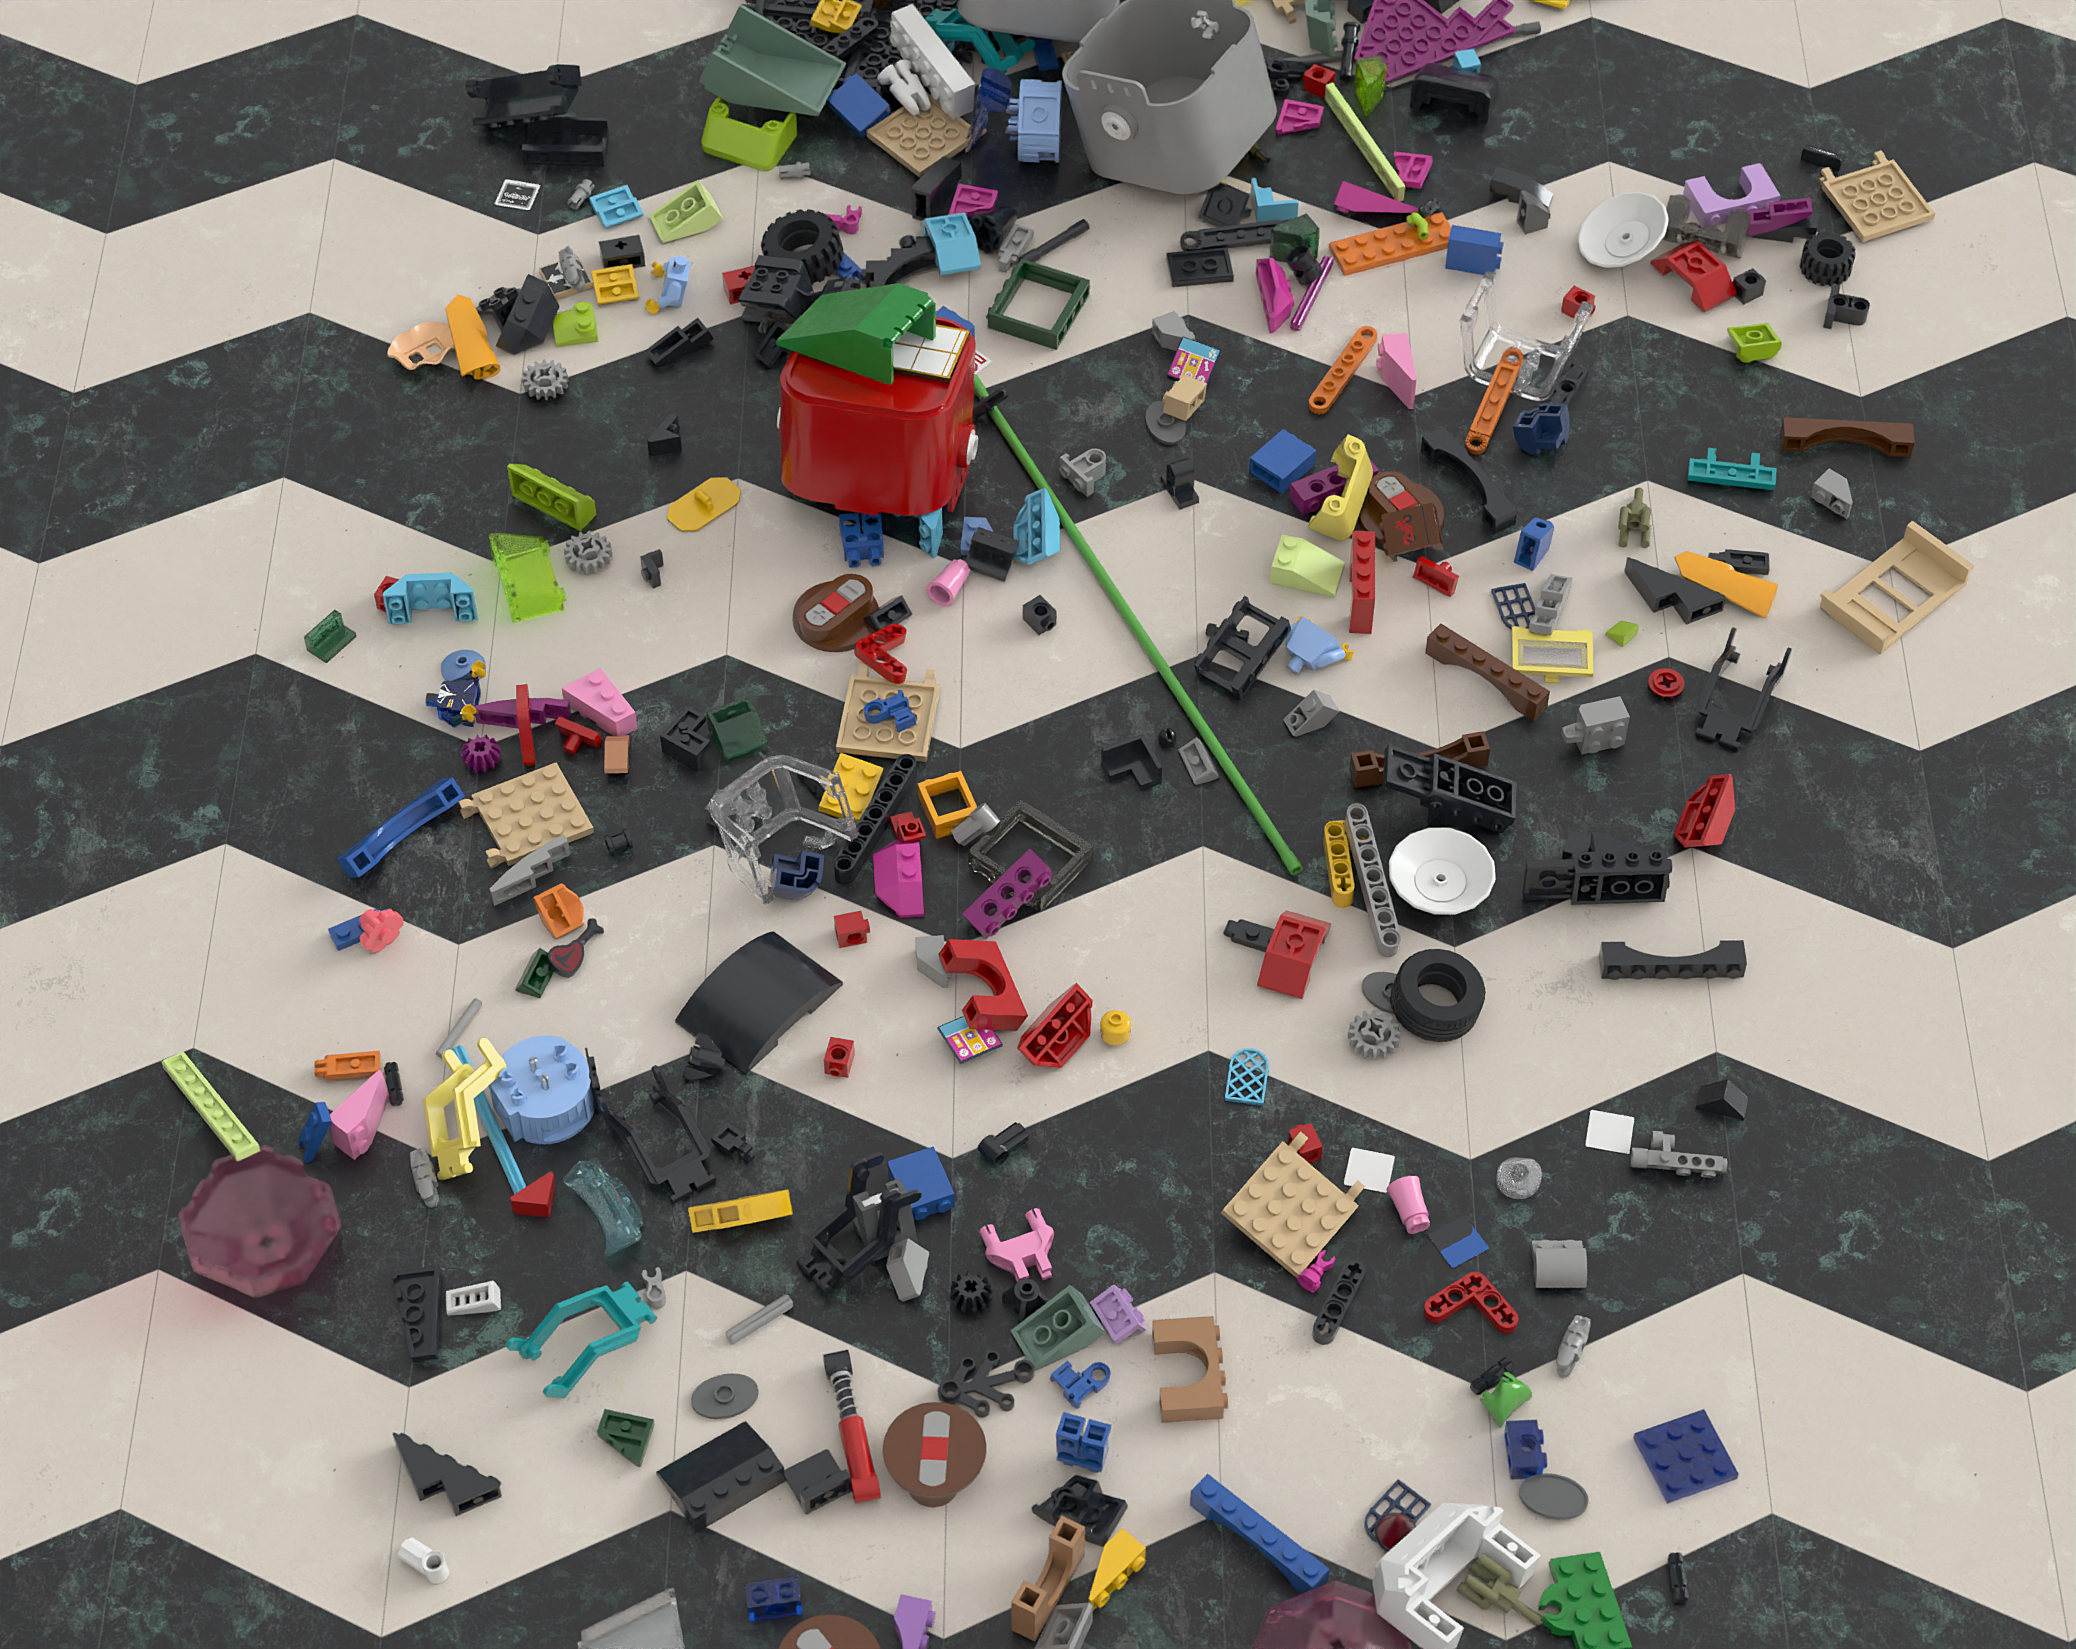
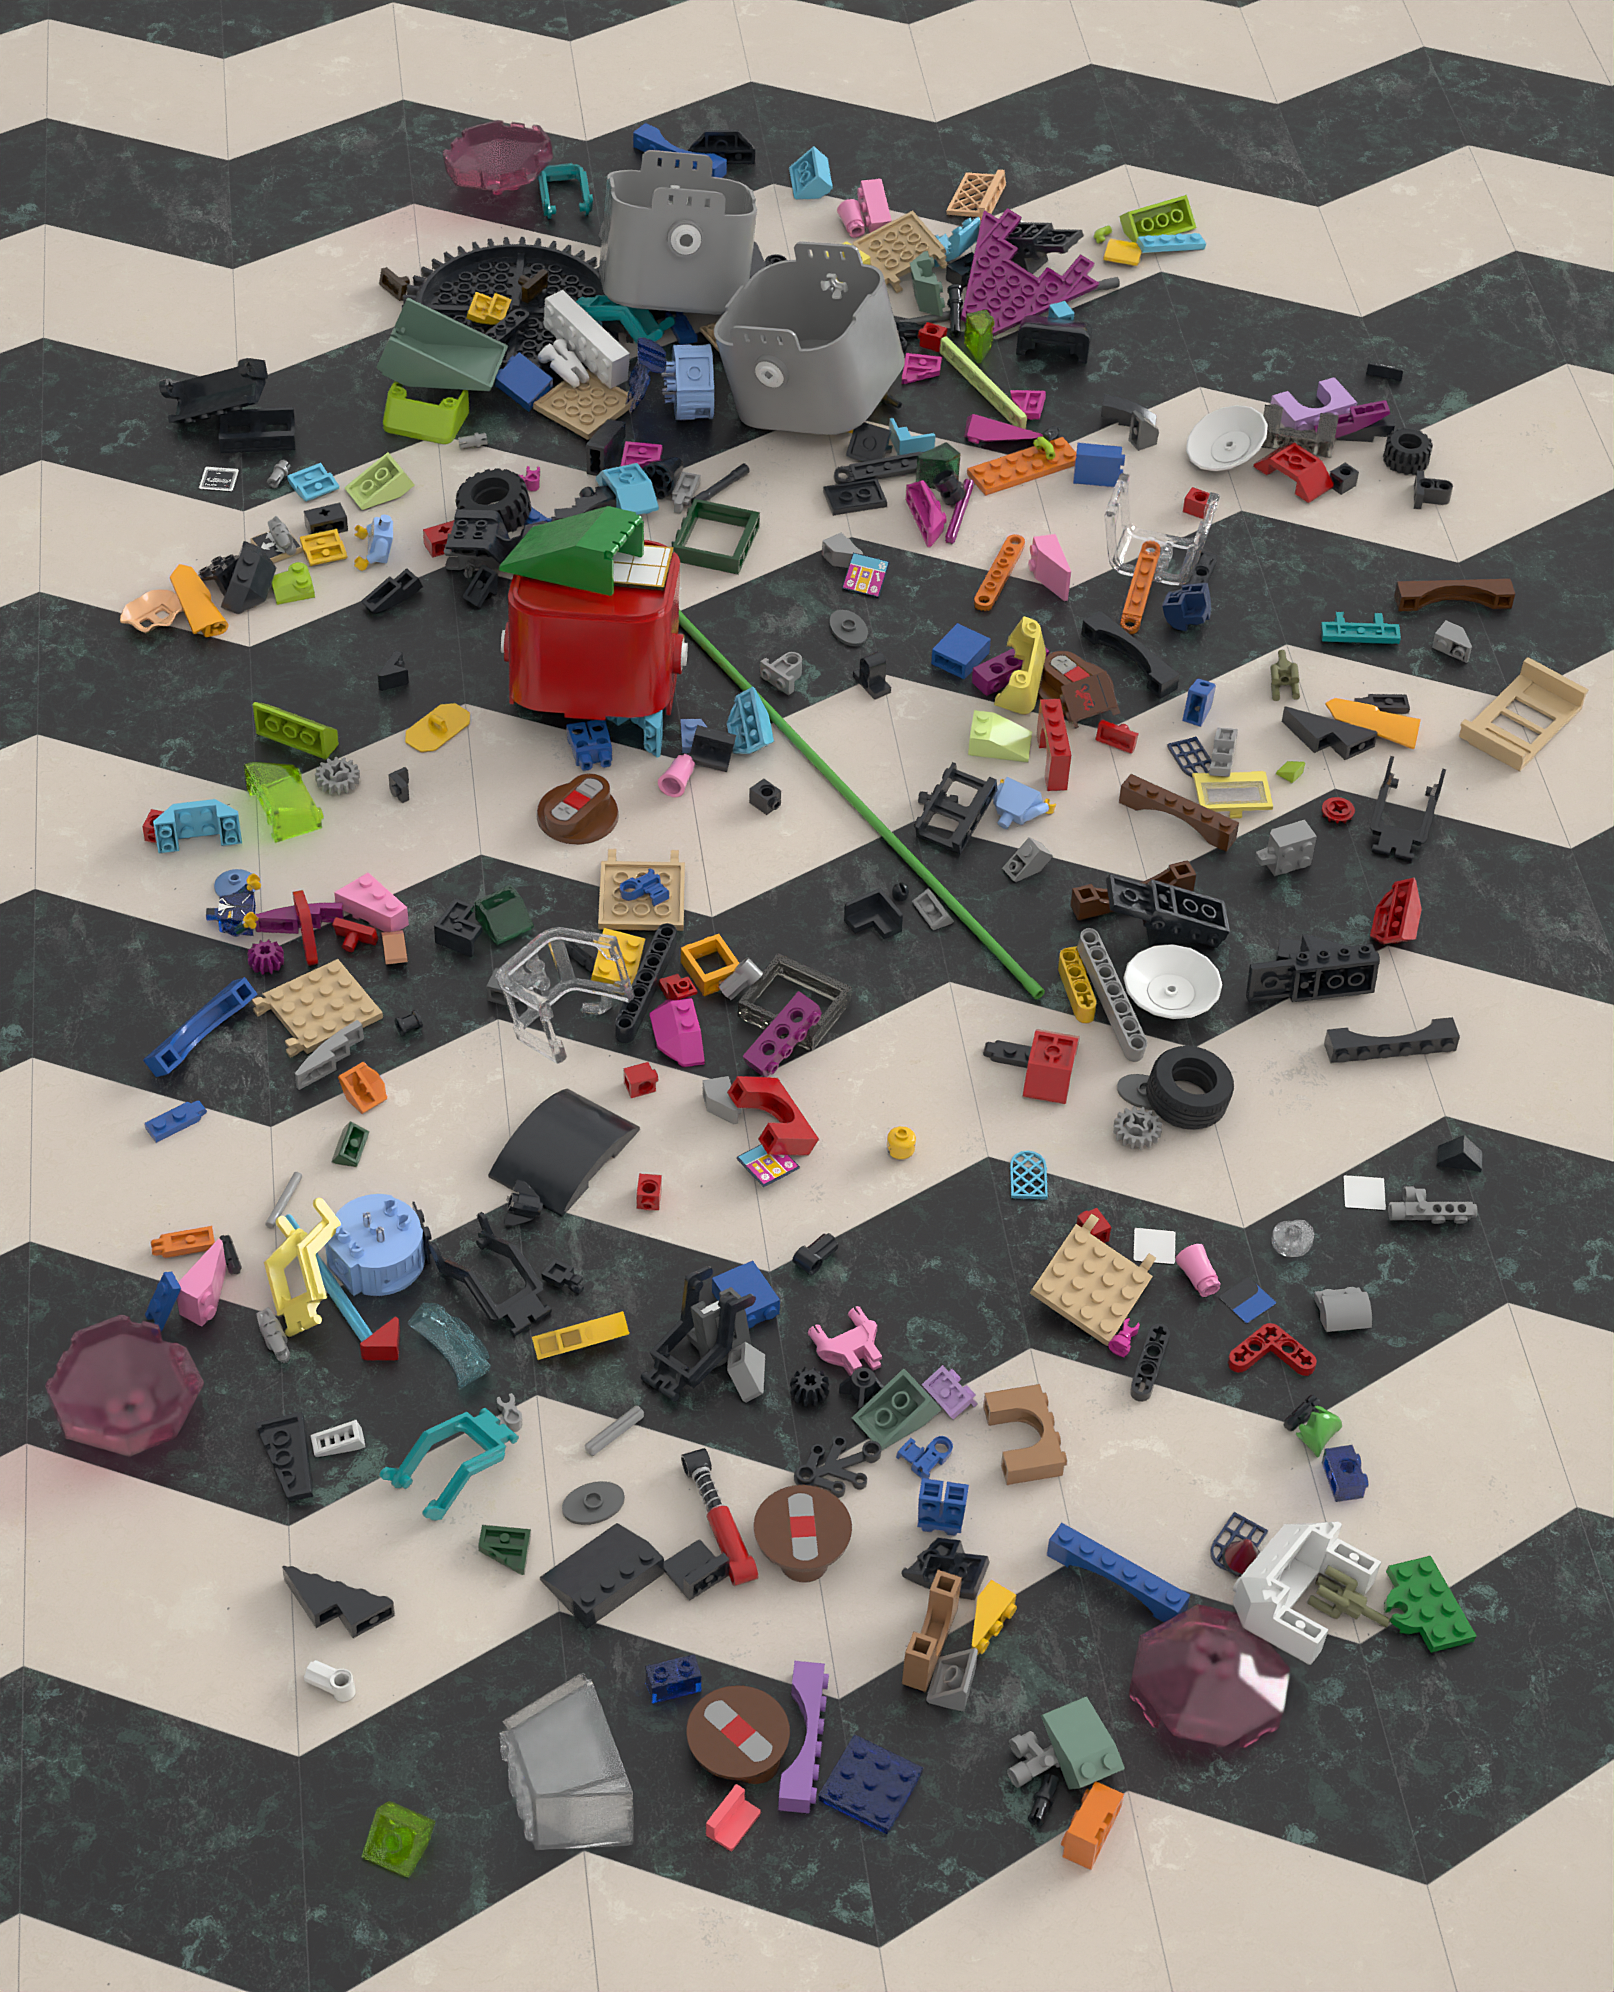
camera: 10 degrees left, 5 degrees down
(210, 1106) = (59, 1287): yellowish green tile -> none
(329, 637) = (103, 868): clear green panel -> none
(379, 928) = (195, 1117): coral plant -> none
(545, 379) = (272, 631): light grey gear -> none
(568, 958) = (378, 1129): black piece -> none
(796, 877) = (583, 1038): dark blue brick -> none
(869, 651) = (620, 838): red beam -> none
(889, 613) = (626, 808): black slope -> none
(988, 403) = (687, 620): black axle -> none
(1058, 1030) = (849, 1148): red wedge -> none
(1184, 397) = (863, 604): tan brick -> none
(1554, 1496) = (1379, 1512): dark grey piece -> none
(1572, 1345) = (1369, 1378): light grey hinge -> none
(1678, 1577) = (1505, 1571): black axle -> none
(1685, 1456) = (1490, 1464): clear blue plate -> none
(1755, 342) = (1359, 523): lime slope -> none
(1876, 199) = (1439, 400): tan plate -> none

